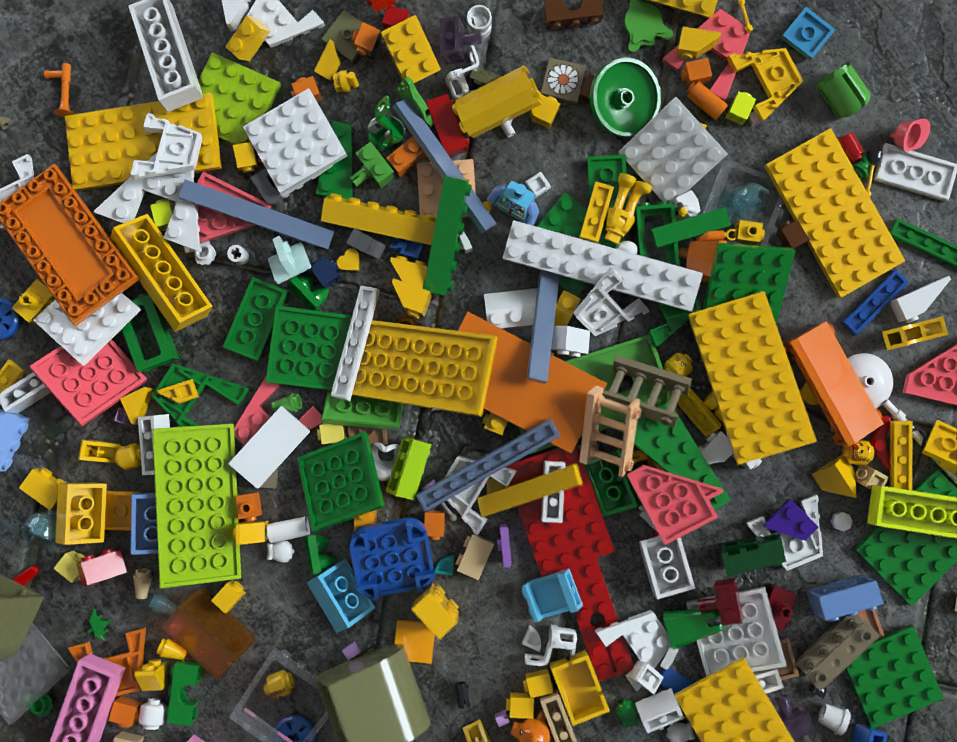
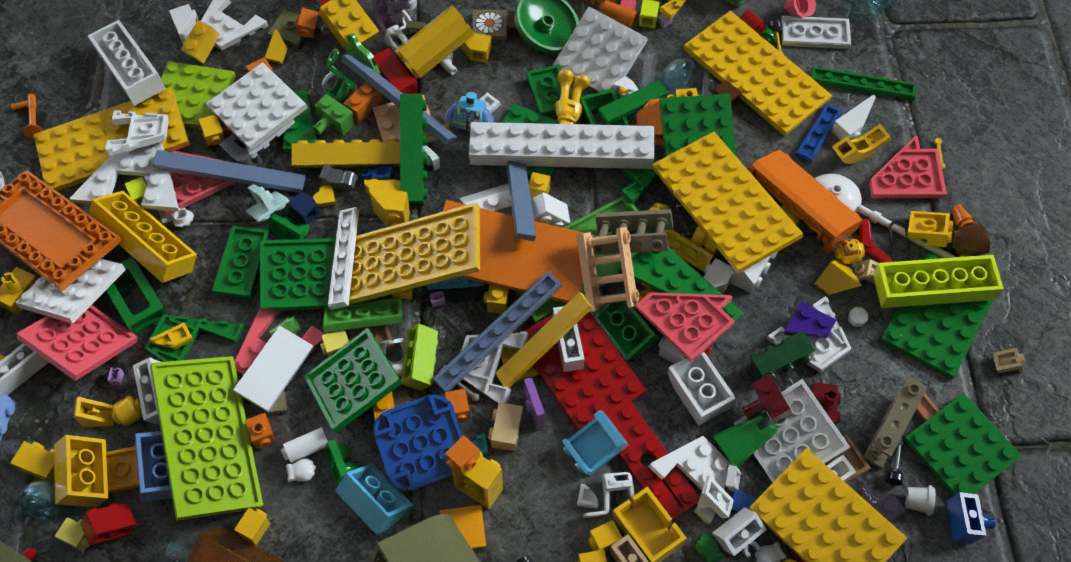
camera: 20 degrees left, 25 degrees down
(137, 403) = (129, 356): yellow slope -> none
(142, 582) = (154, 535): tan cone -> none
(238, 249) = (215, 211): white gear -> none
(250, 532) = (267, 452): yellow slope -> none
(344, 80) = (294, 58): yellow piece -> none
(423, 607) = (462, 455): none -> orange brick
(596, 212) = (546, 104): yellow plate -> none
(600, 312) = (570, 181): white wing -> none
(844, 598) = (884, 377): medium blue brick -> none
(901, 454) = (887, 238): yellow tile -> none

